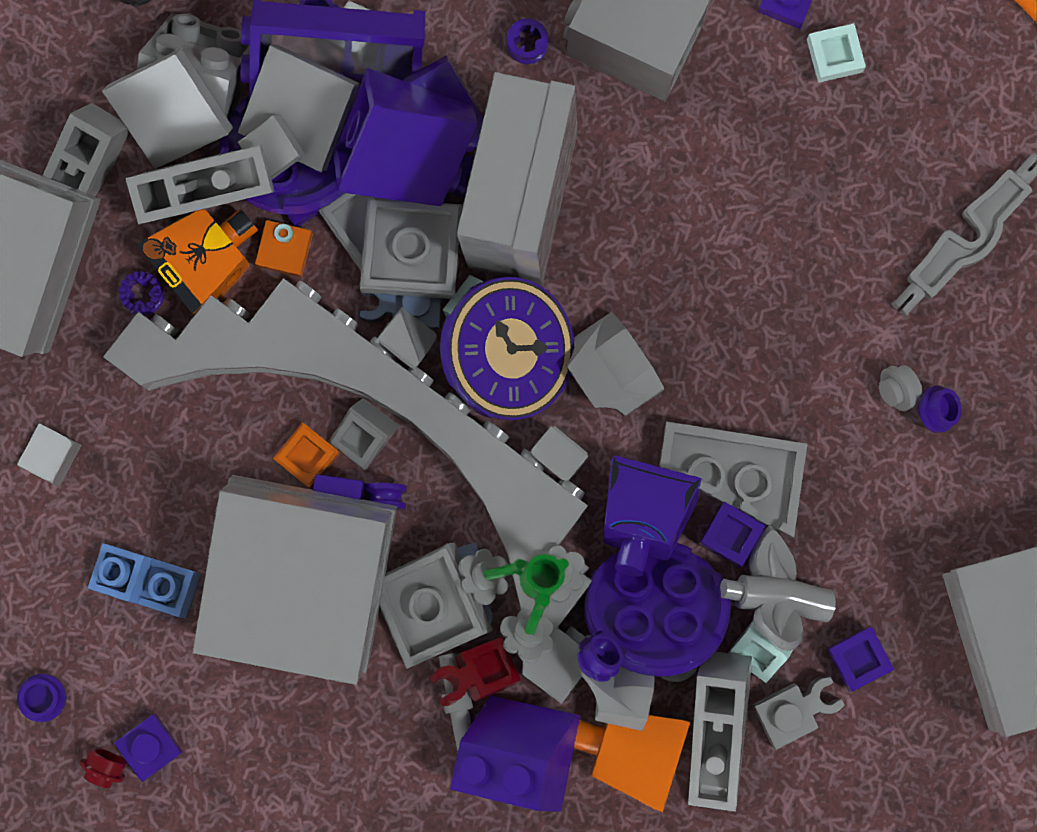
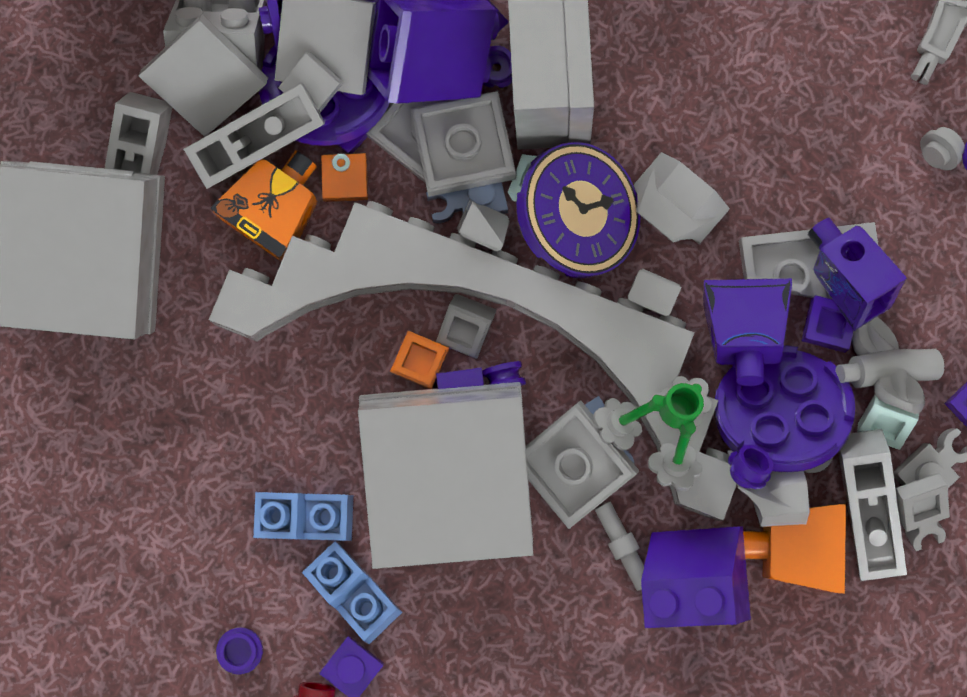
camera: 15 degrees left, 0 degrees up
(49, 455) = (182, 425): light grey slope -> none
(127, 294) = (224, 240): dark purple bush -> none
(171, 671) = (352, 592): none -> medium blue slope
(481, 670) = (637, 513): dark red plate -> none
(768, 748) = (921, 507): none -> light grey plate
(770, 505) = (855, 272): none -> dark purple torso

